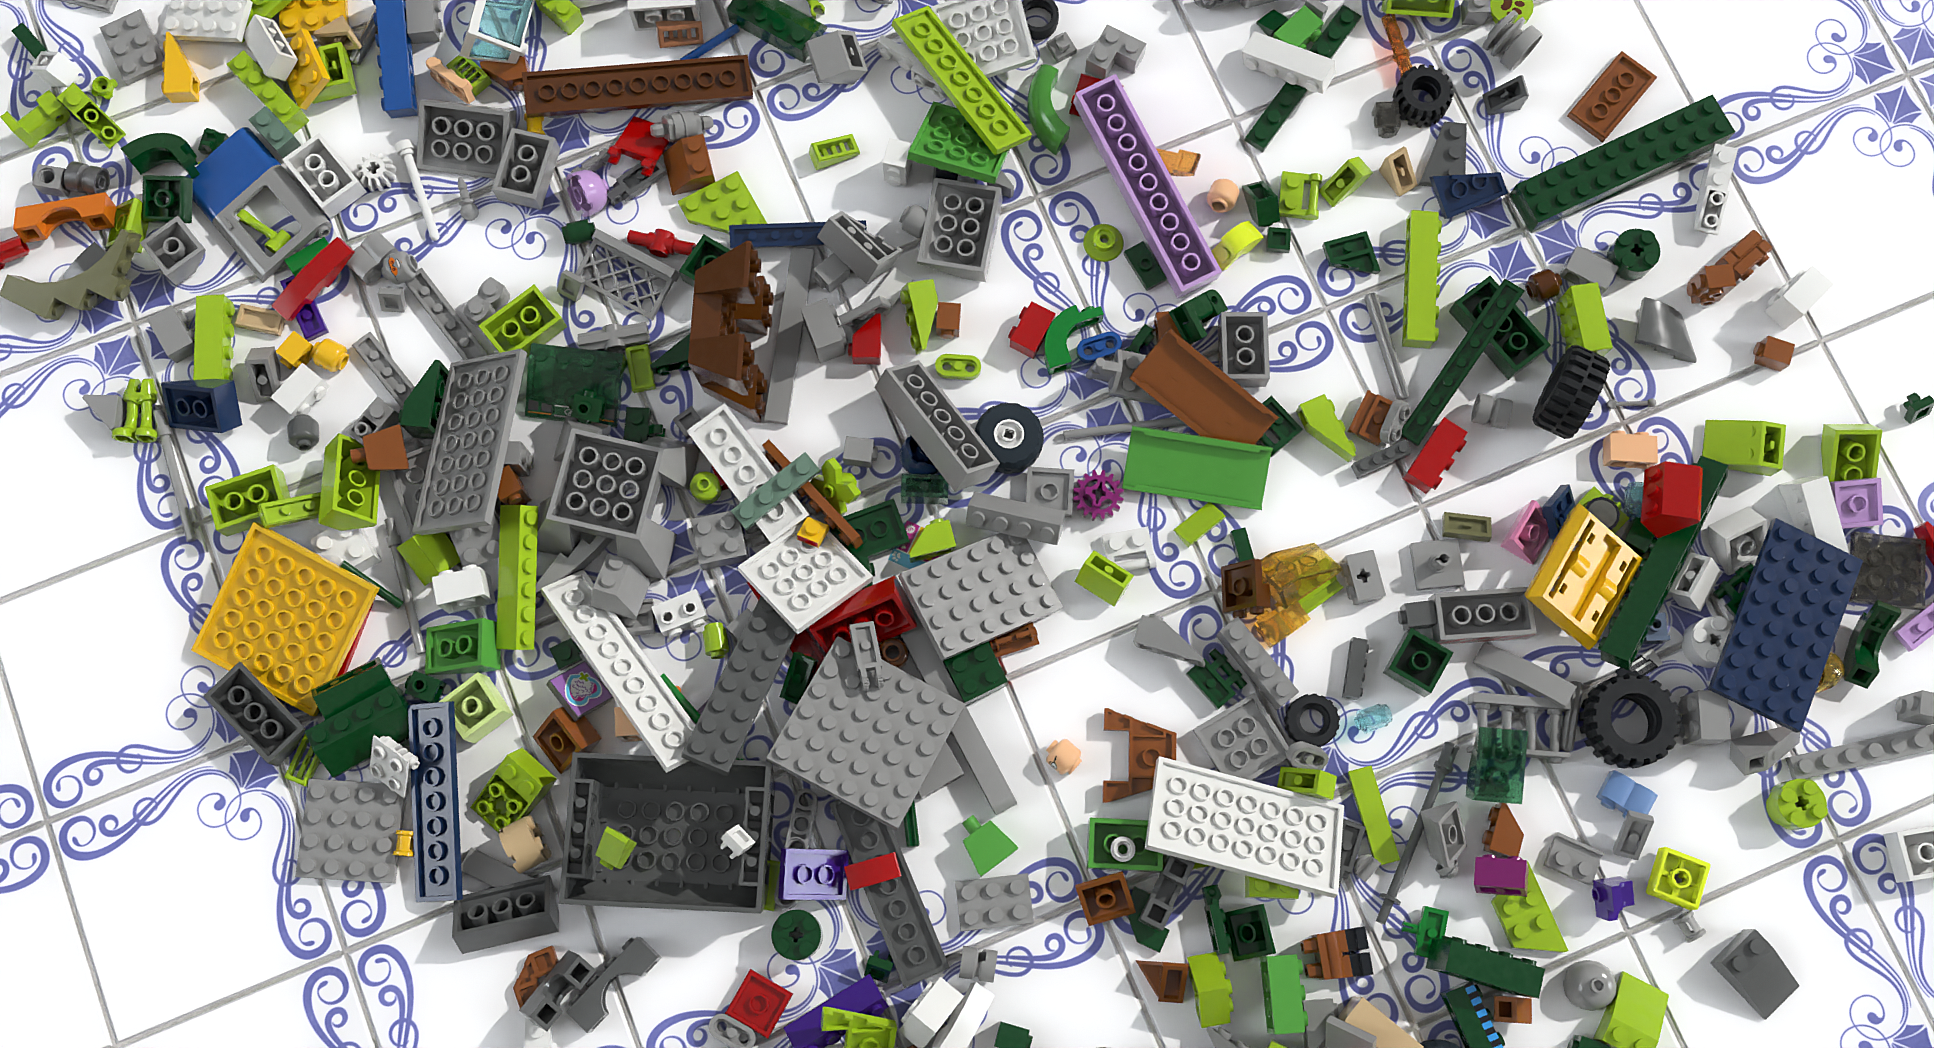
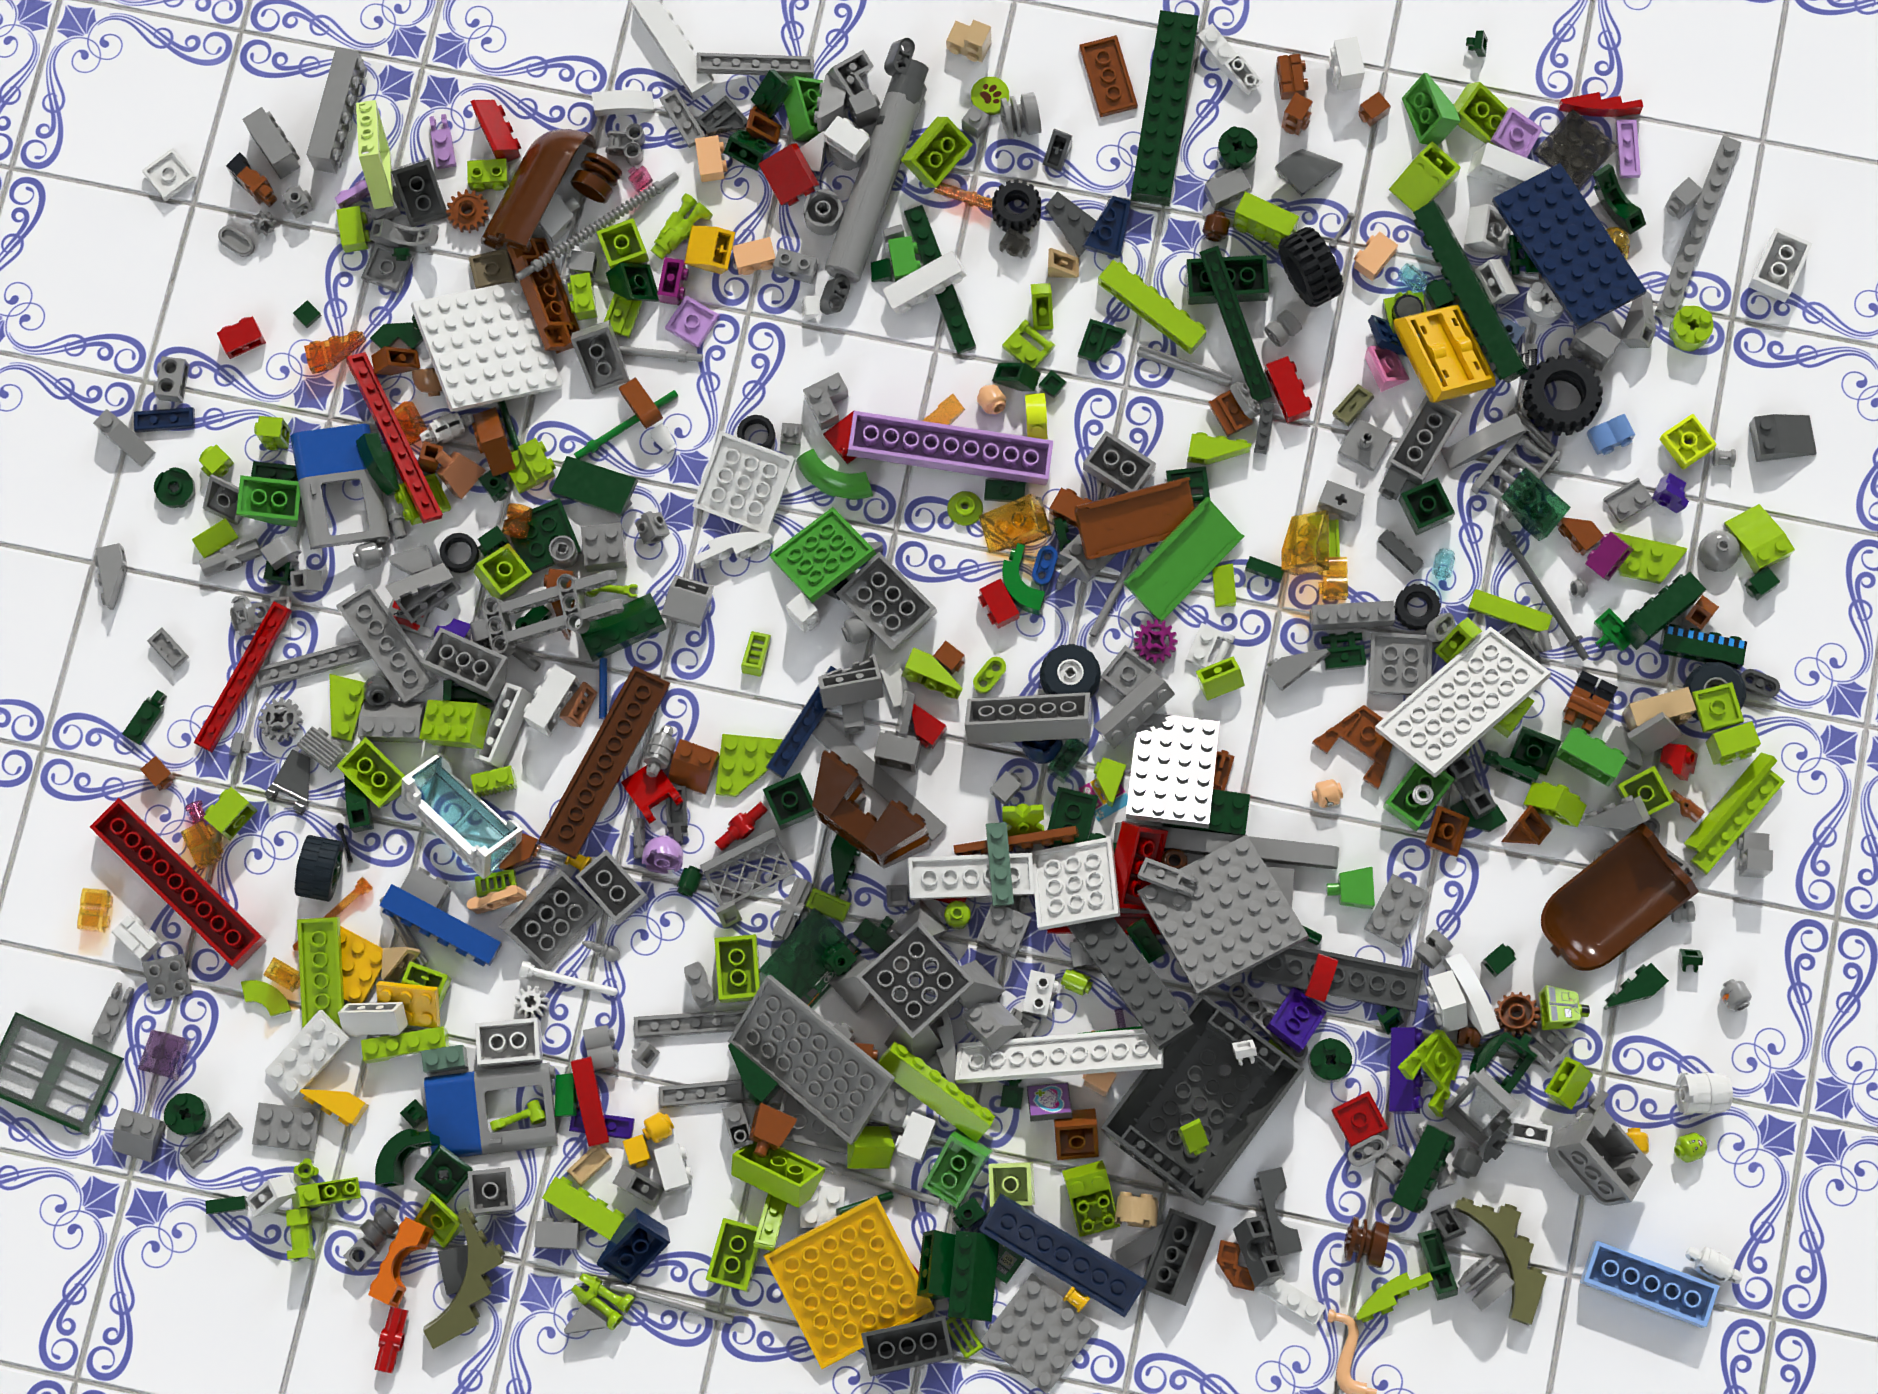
camera: 50 degrees left, 0 degrees up
(303, 432) = (706, 1184): dark grey head -> none
(391, 763) = (1014, 1270): white hinge -> none
(399, 267) = (626, 1030): light grey head -> none
(812, 532) = (1046, 859): yellow plate -> none
(961, 80) = (772, 523): lime plate -> none
(1121, 294) = (1016, 522): none -> clear yellow slope
(1200, 308) = (1068, 481): dark green piece -> none
(1244, 589) = (1295, 587): reddish brown plate -> none
(1444, 832) = (1554, 573): light grey slope -> none
(1633, 835) = (1640, 449): light grey plate -> none
(1671, 497) = (1430, 254): red slope -> none
(1814, 405) = (1430, 111): none -> bright green slope

